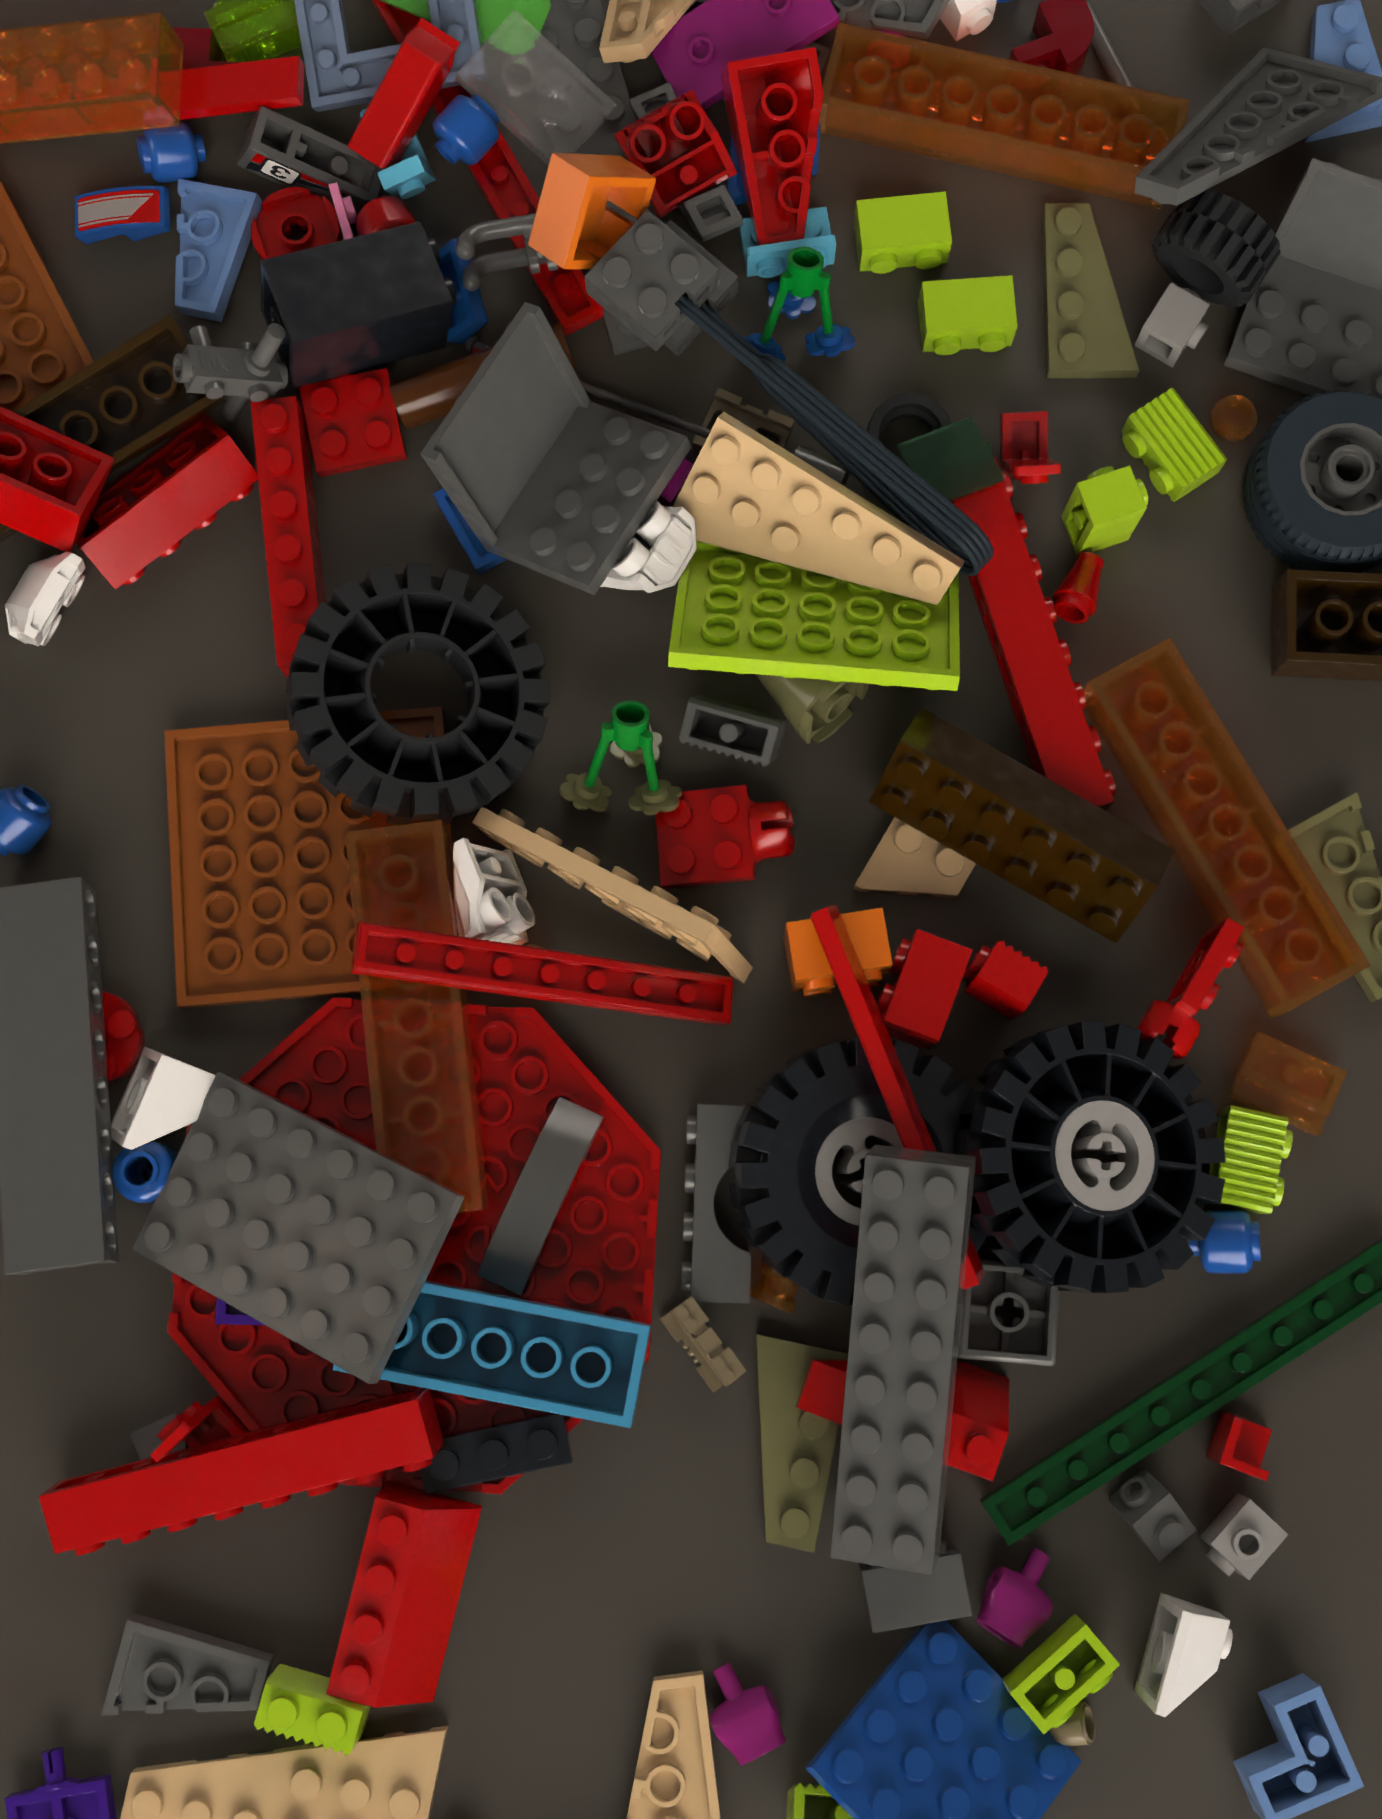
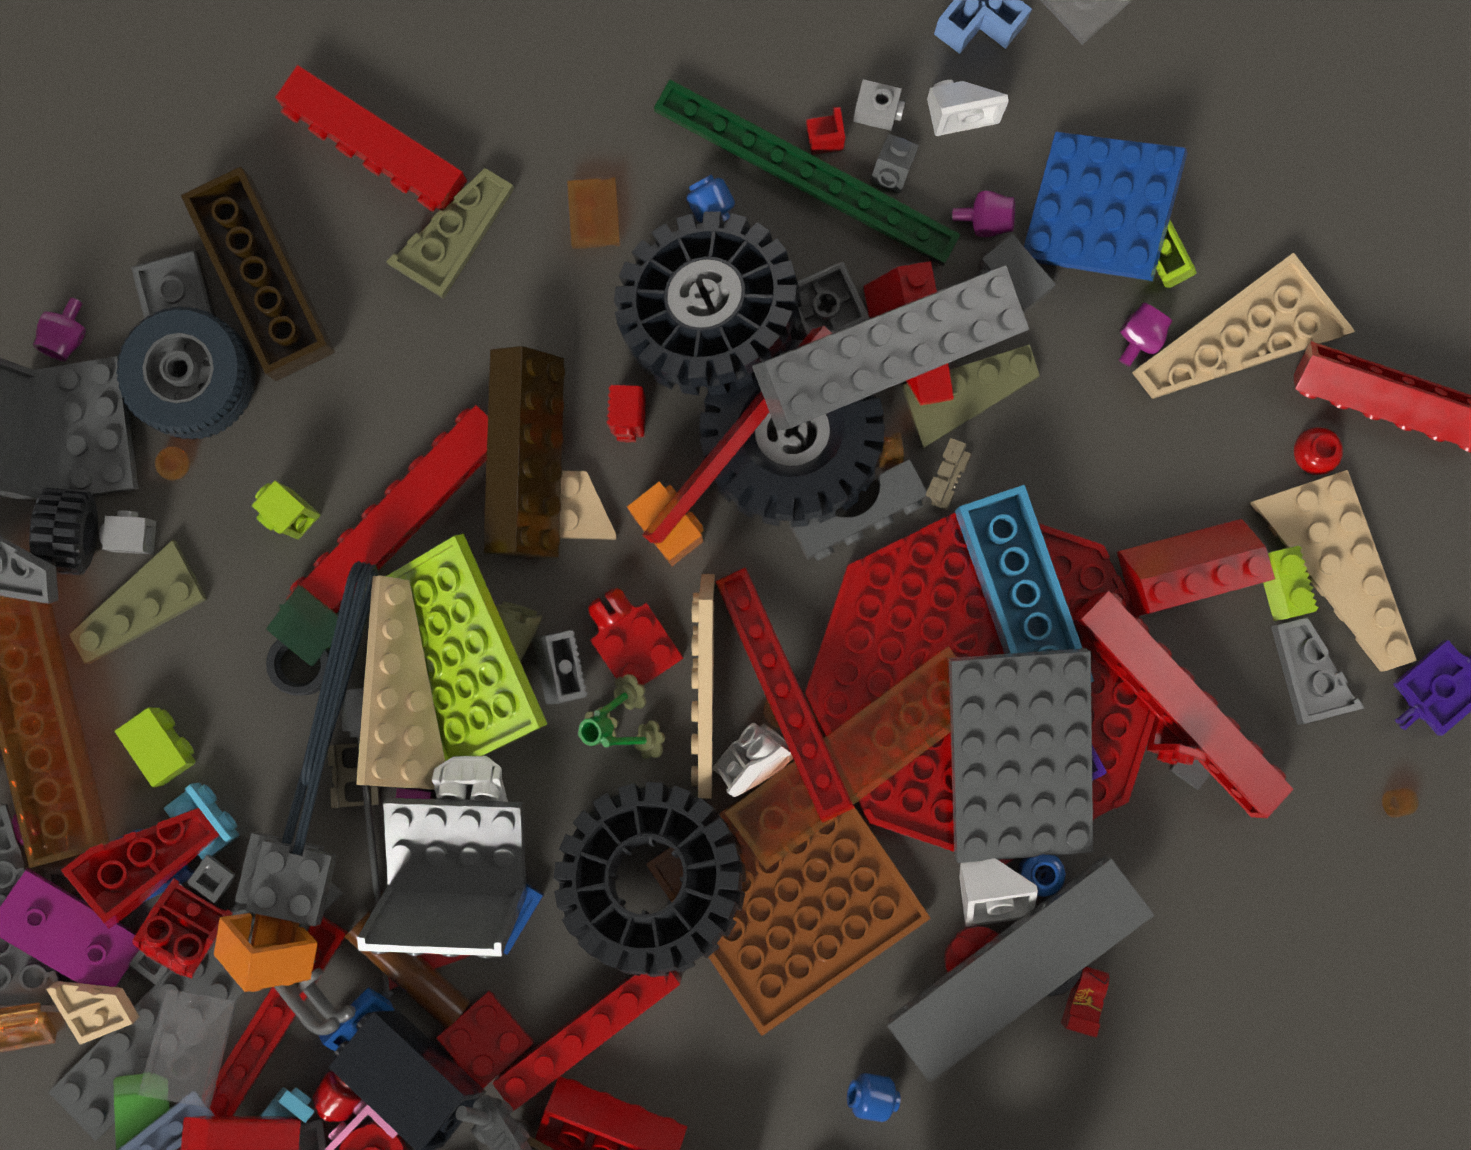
camera: 120 degrees left, 5 degrees up
(466, 130) = (241, 1080): blue head -> none
(499, 1452) = (1081, 558): black plate -> none
(539, 1195) = (916, 621): dark grey slope -> none
(794, 296) = (237, 795): plant -> none
(923, 989) = (660, 457): red brick -> none
(967, 314) = (192, 671): lime brick -> none
(1026, 446) = (267, 583): red bracket -> none
(1060, 1674) = (1015, 167): lime brick -> none
(1078, 1728) = (1038, 148): dark tan piece -> none
(1079, 590) = (345, 500): red cone -> none
(1172, 445) = (214, 492): lime brick -> none
(1193, 989) = (569, 296): red plate -> none
(1222, 827) = (455, 331): clear orange brick -> none
(1253, 1158) = (651, 209): lime brick -> none

